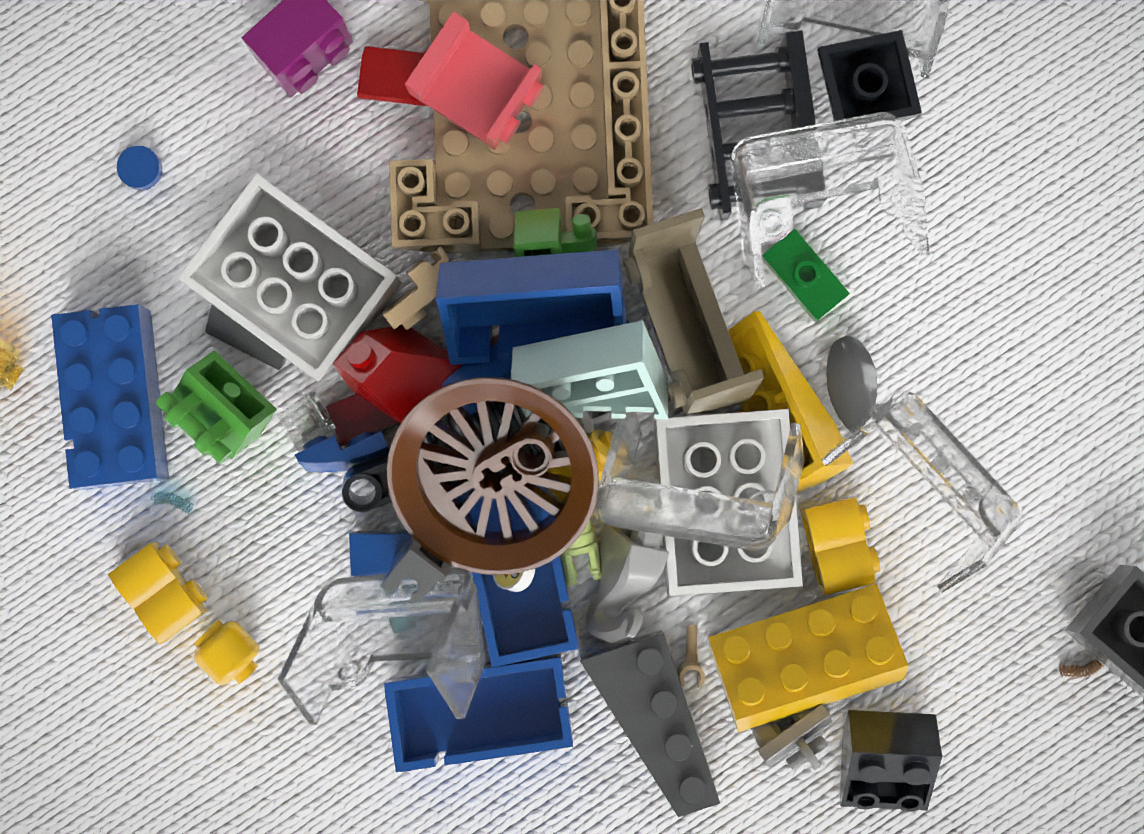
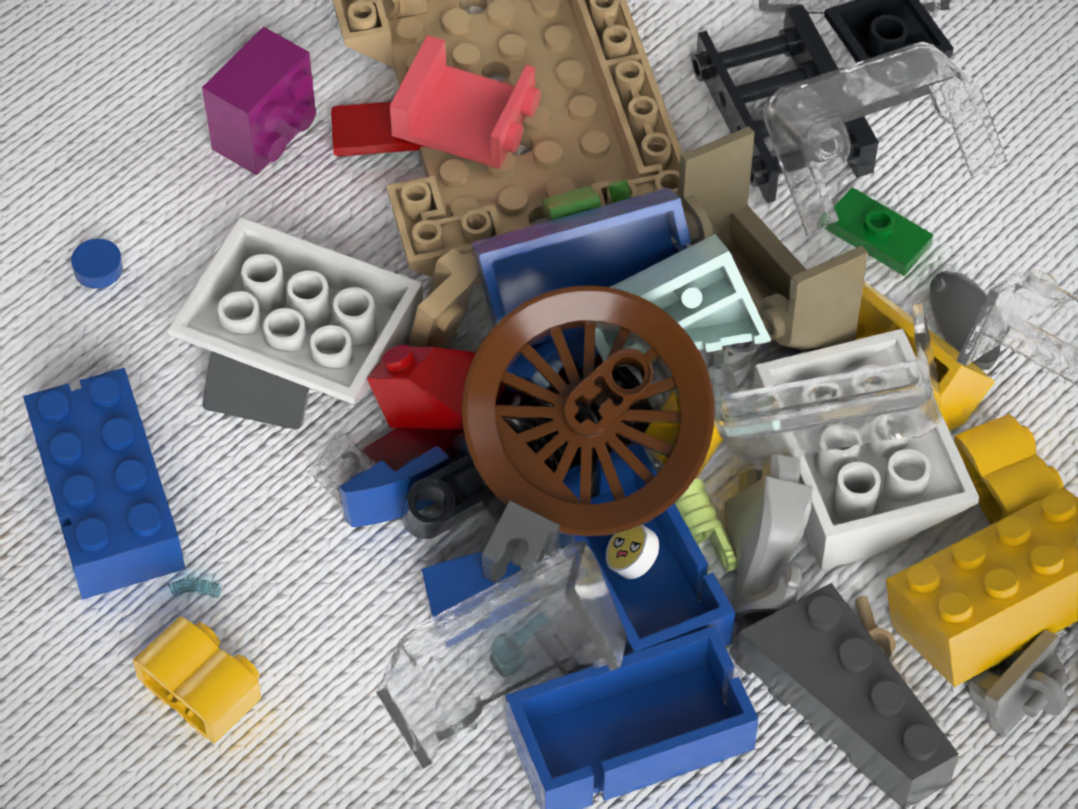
camera: 15 degrees left, 30 degrees down
(217, 408) = (238, 460): bright green brick -> none
(226, 652) = (296, 725): yellow head -> none

